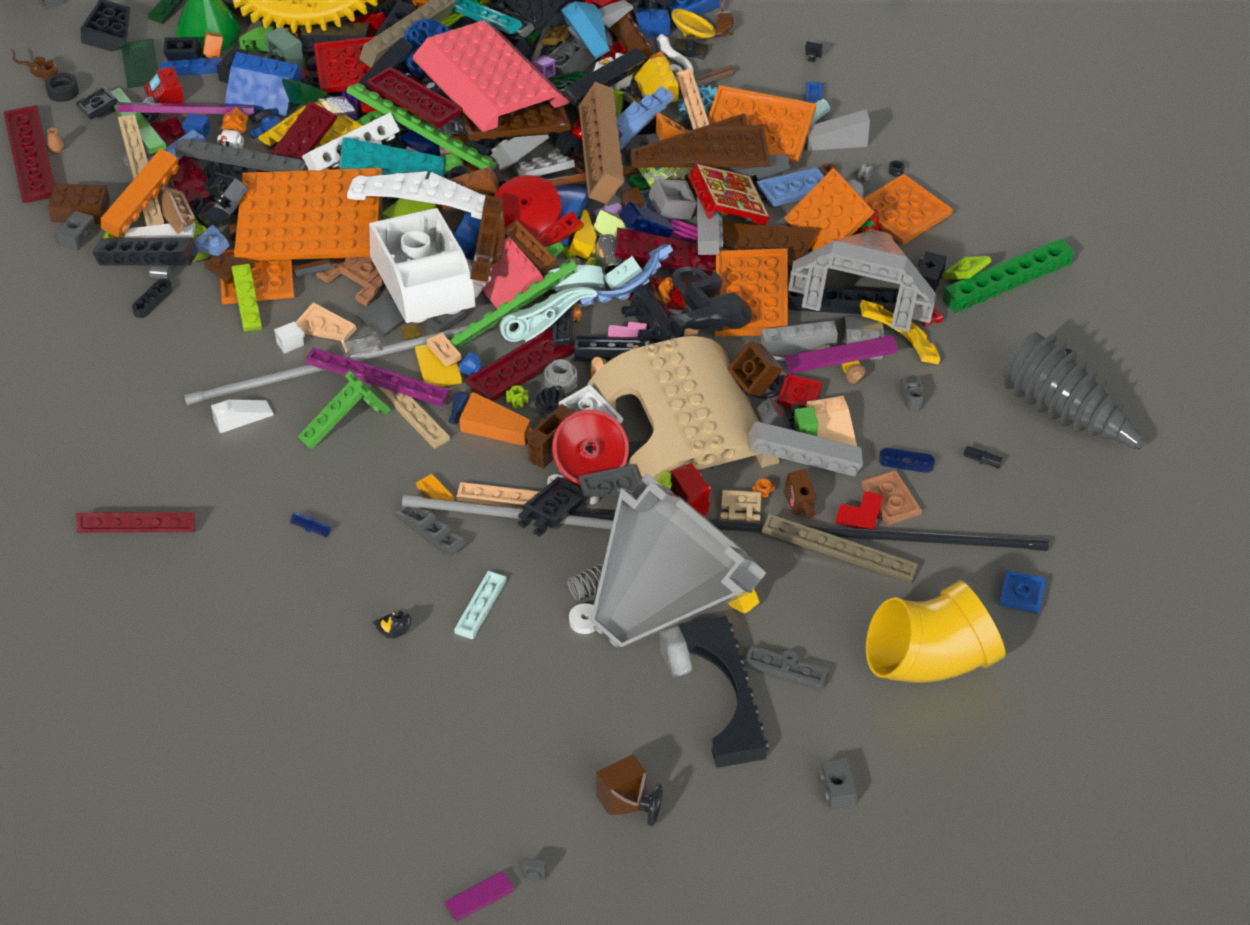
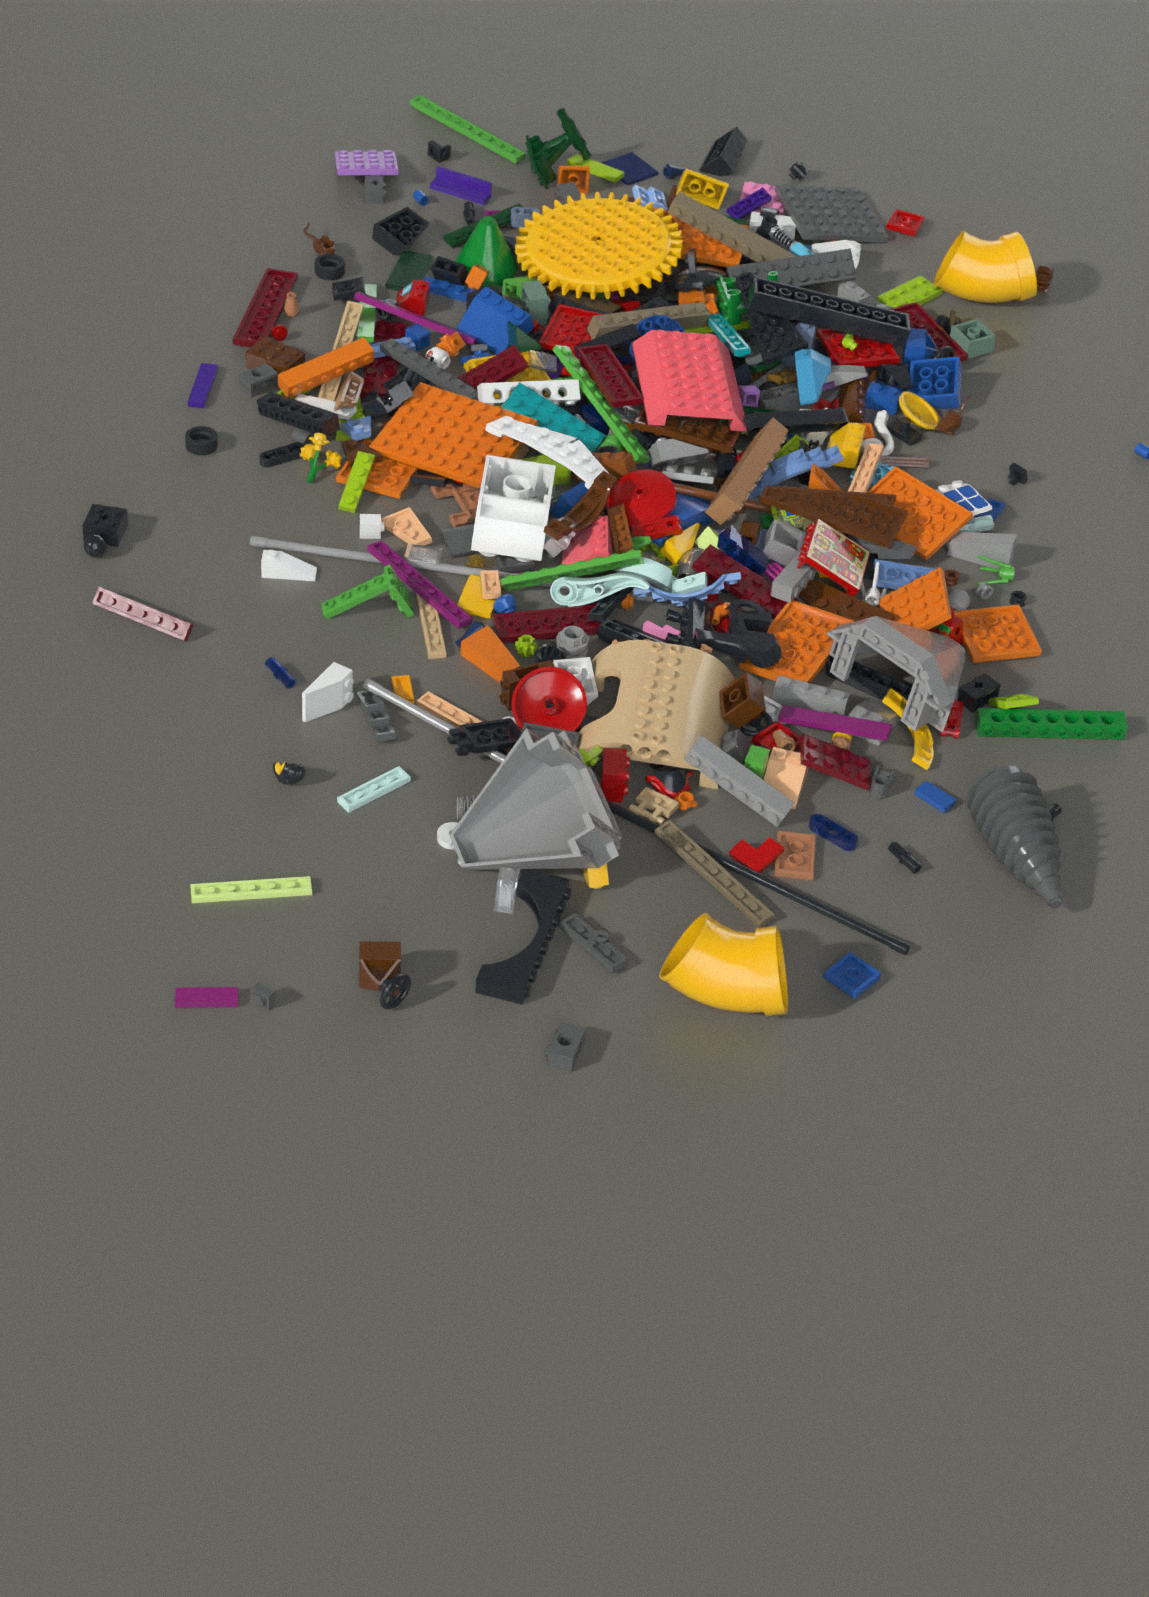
camera: 25 degrees right, 5 degrees down
(23, 257) = (202, 385): none -> dark purple tile
(34, 449) = (103, 528): none -> black brick
(61, 173) = (279, 332): none -> red plate
(62, 306) = (201, 448): none -> black tyre
(205, 283) = (311, 452): none -> yellow plant
(376, 524) = (328, 692): none -> white slope
(440, 763) = (251, 889): none -> yellowish green tile
(742, 478) = (671, 782): none -> hat
(778, 214) = (873, 595): none -> white plant
(793, 89) = (965, 496): none -> slope
(800, 493) = (710, 821): reddish brown torso -> none
(810, 391) = (783, 740): none -> medium nougat cone
(866, 392) = (835, 761): none -> dark red plate
(870, 147) = (1005, 572): none -> bright green plant
(964, 386) = (935, 796): none -> blue tile

